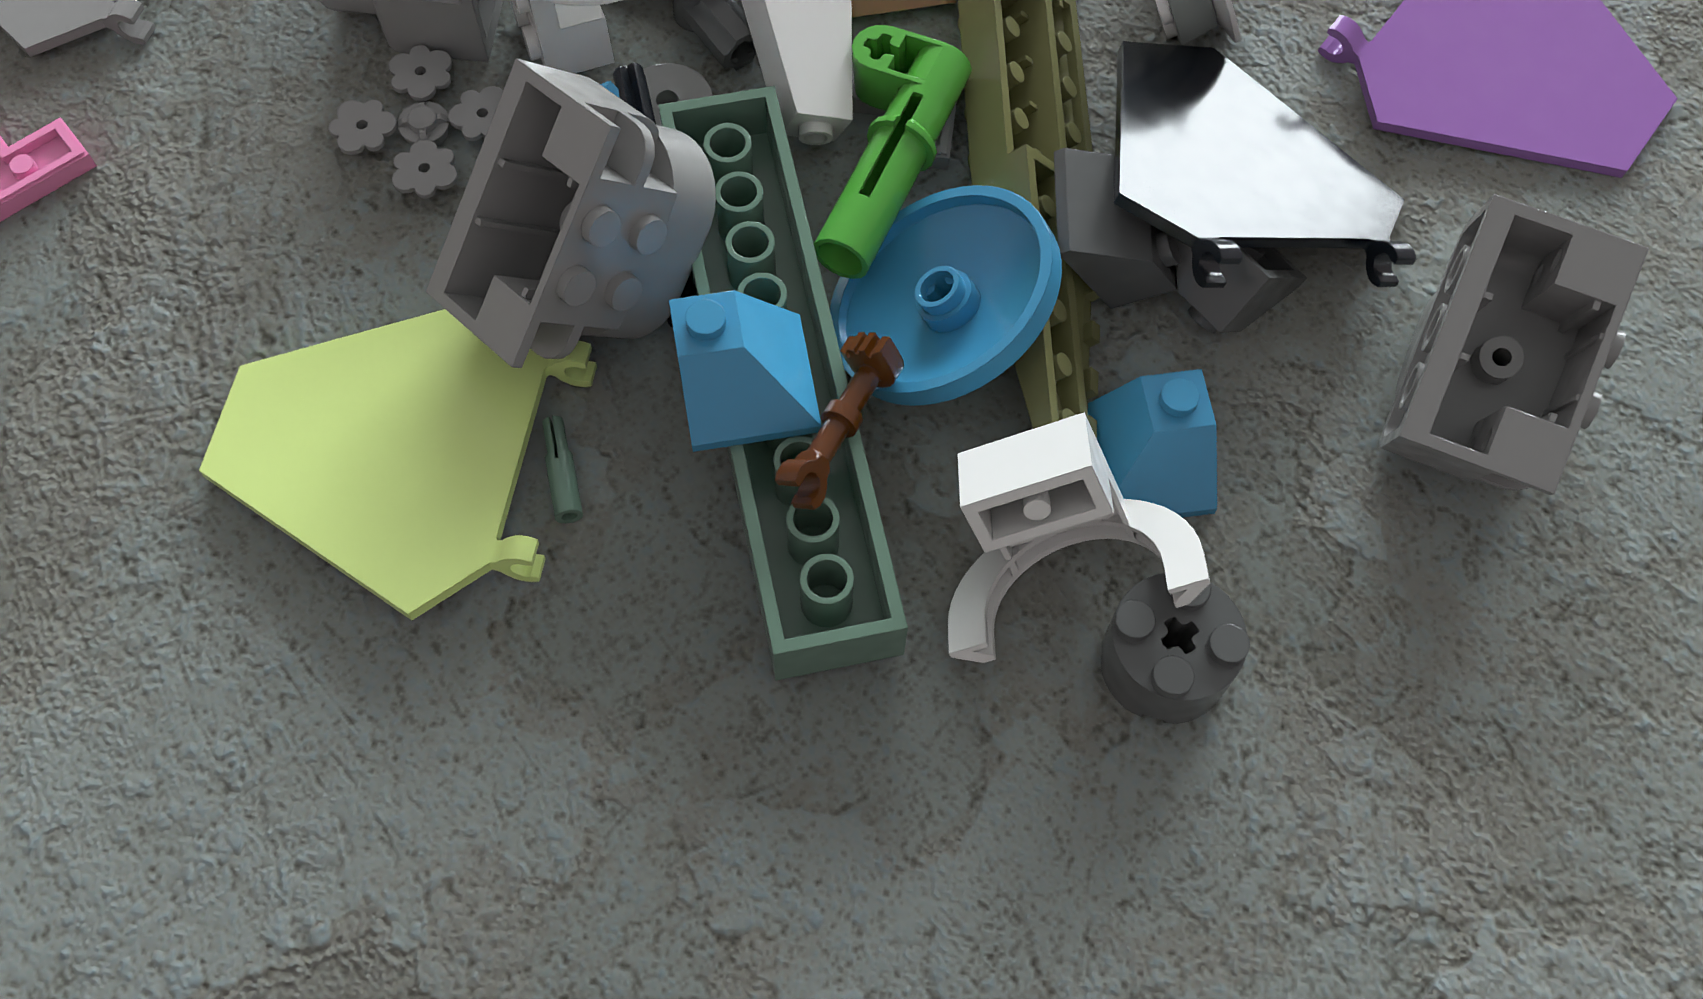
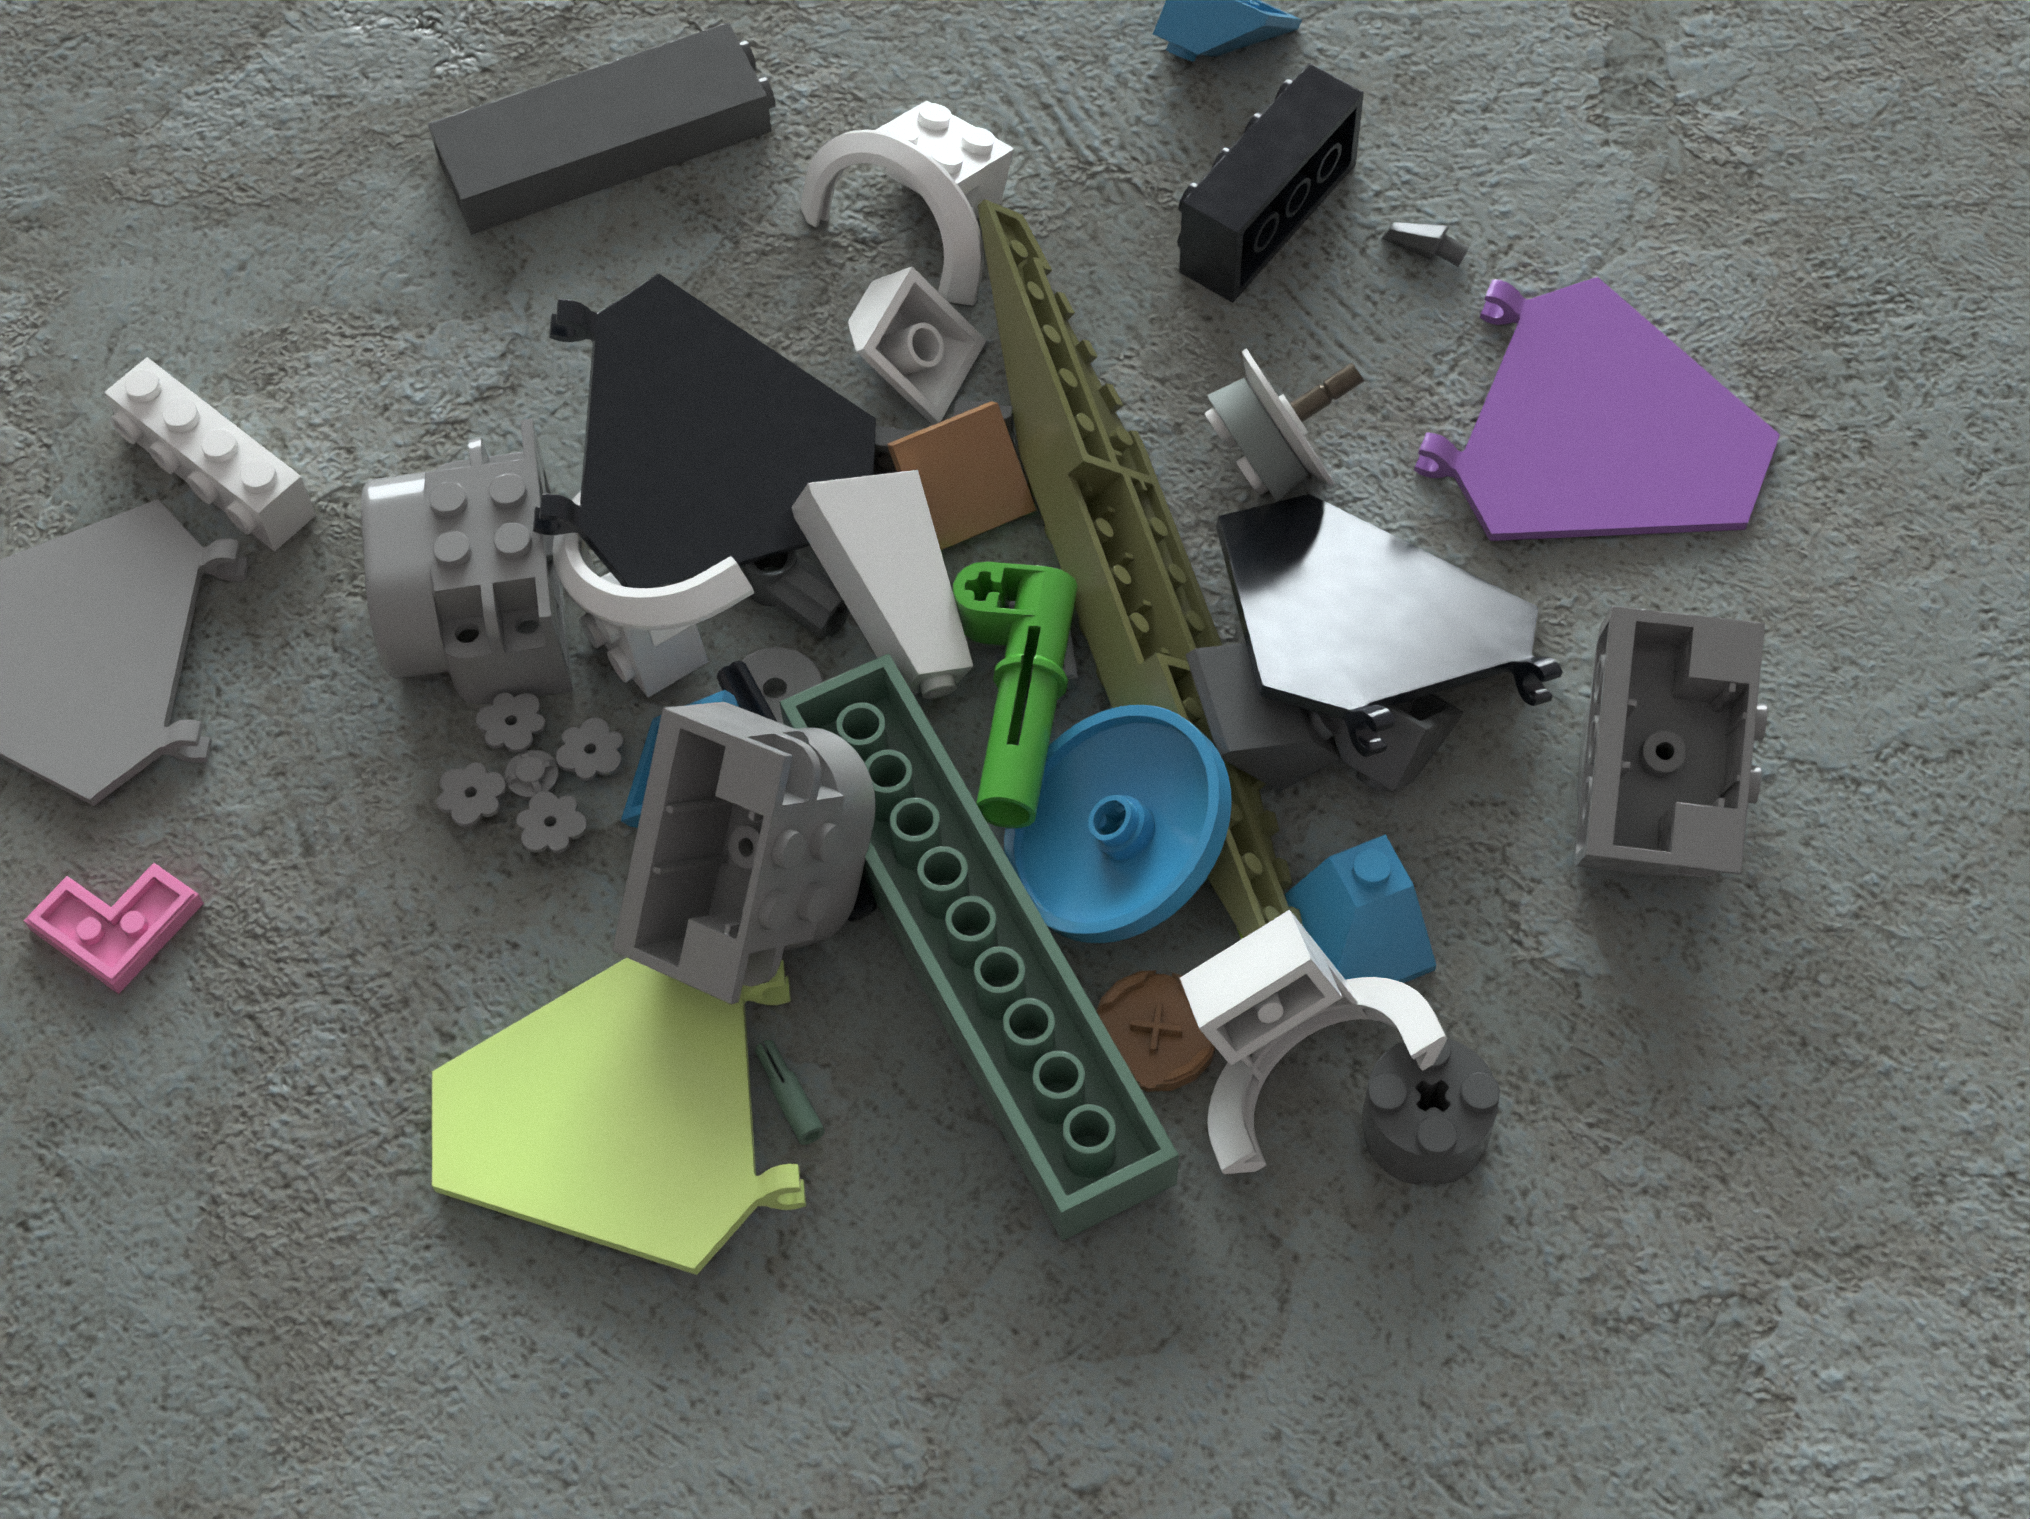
camera: 10 degrees left, 5 degrees down
(742, 370) = (950, 951): dark azure slope -> none
(875, 365) = (1073, 911): reddish brown piece -> none
(921, 502) = (1155, 1030): none -> medium nougat tile

